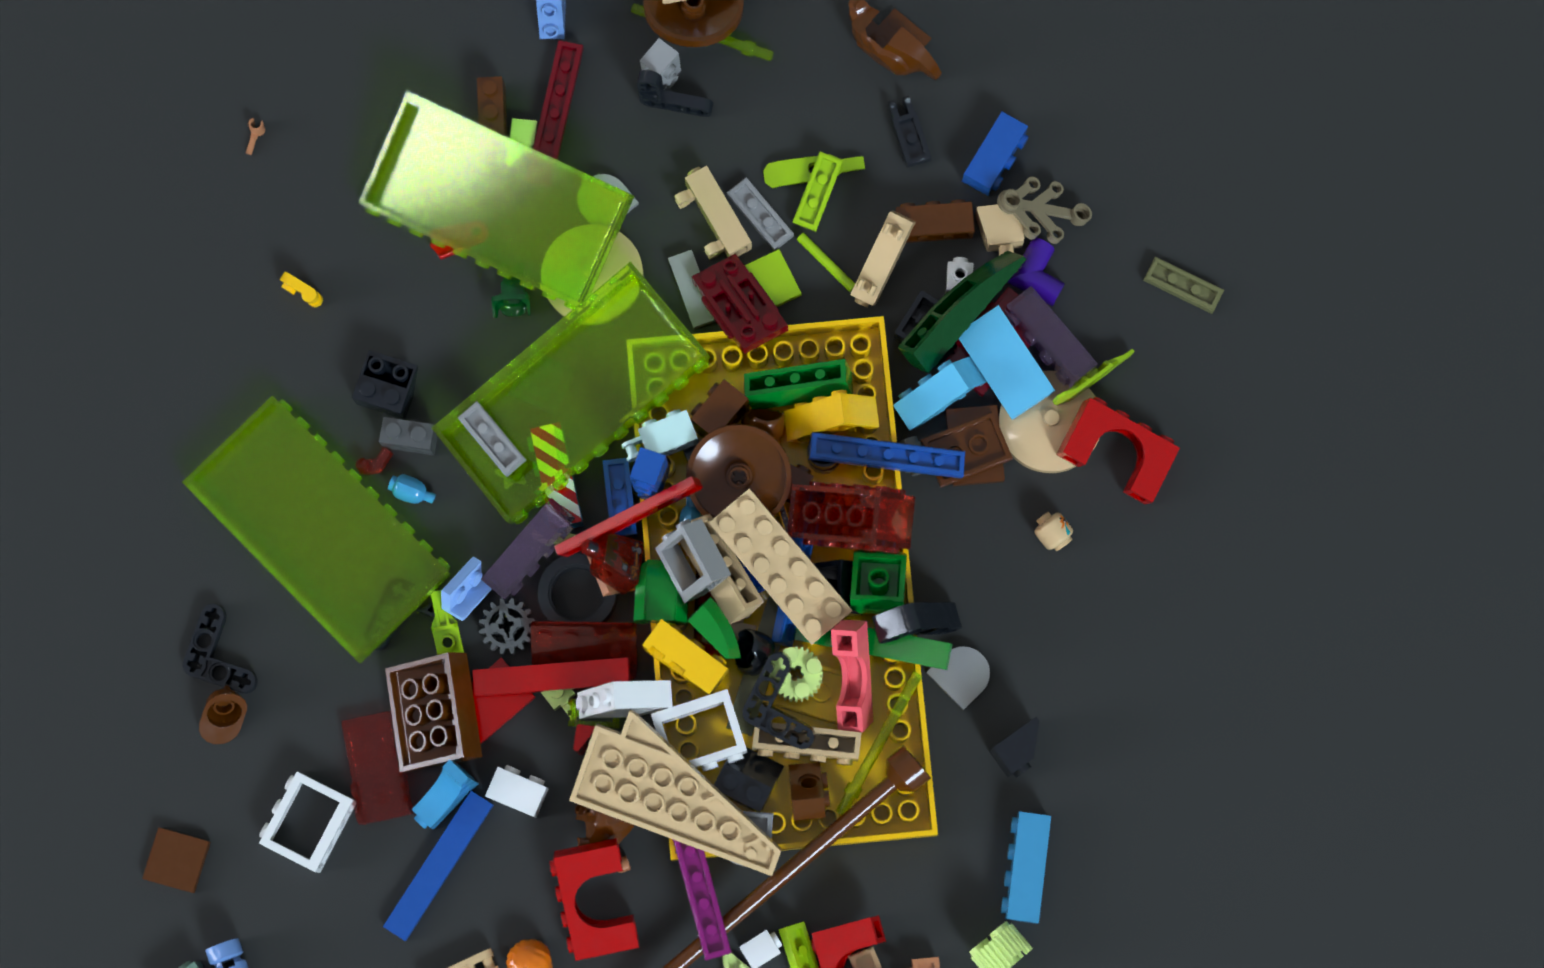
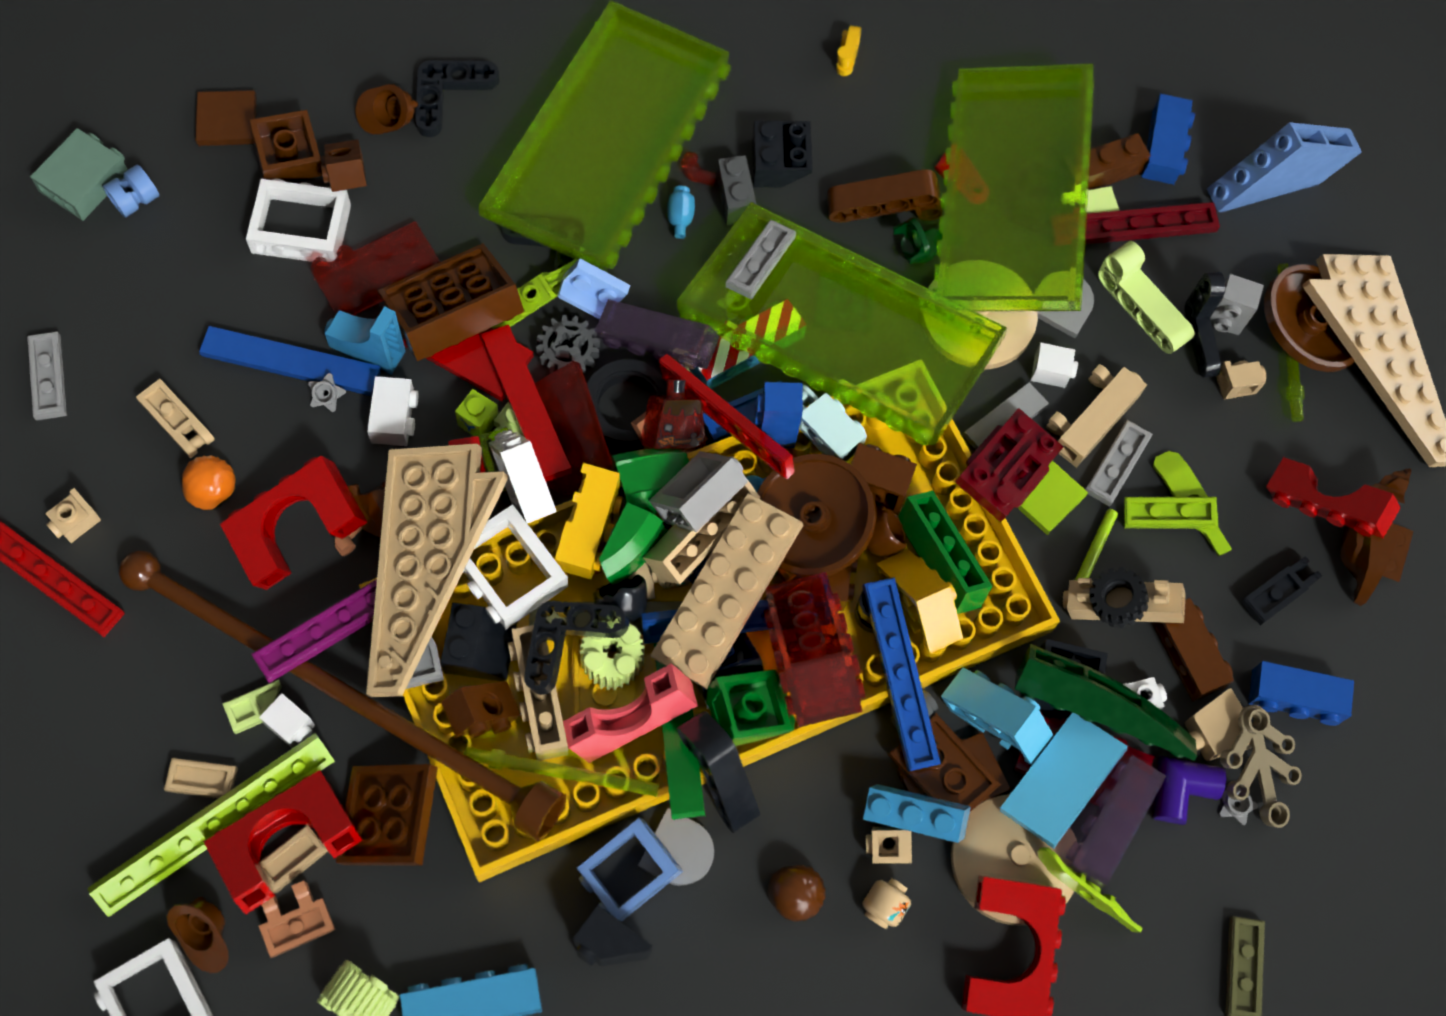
camera: 60 degrees right, 10 degrees down
(233, 813) = (286, 146): none -> reddish brown brick
(271, 767) = (343, 165): none -> reddish brown brick
(461, 312) = (885, 196): none -> reddish brown beam
(483, 849) = (318, 389): none -> light grey plate
(484, 51) = (1168, 139): none -> blue brick
(545, 721) = (476, 413): none -> lime brick
(628, 134) = (1142, 299): none -> yellowish green beam
(660, 232) = (1054, 365): none -> white brick
(723, 86) = (1241, 379): none -> tan brick
(864, 887) = (390, 813): none -> reddish brown plate
(871, 275) = (1114, 580): none -> black tyre
(877, 44) = (1365, 510): none -> red arch
(958, 691) = (655, 849): none -> medium blue window
(996, 483) = (917, 813): none -> dark azure brick
(1018, 512) = (898, 854): none -> tan brick
(1022, 596) = (796, 892): none -> reddish brown hair
(1070, 239) = (1239, 813): none -> light grey plate

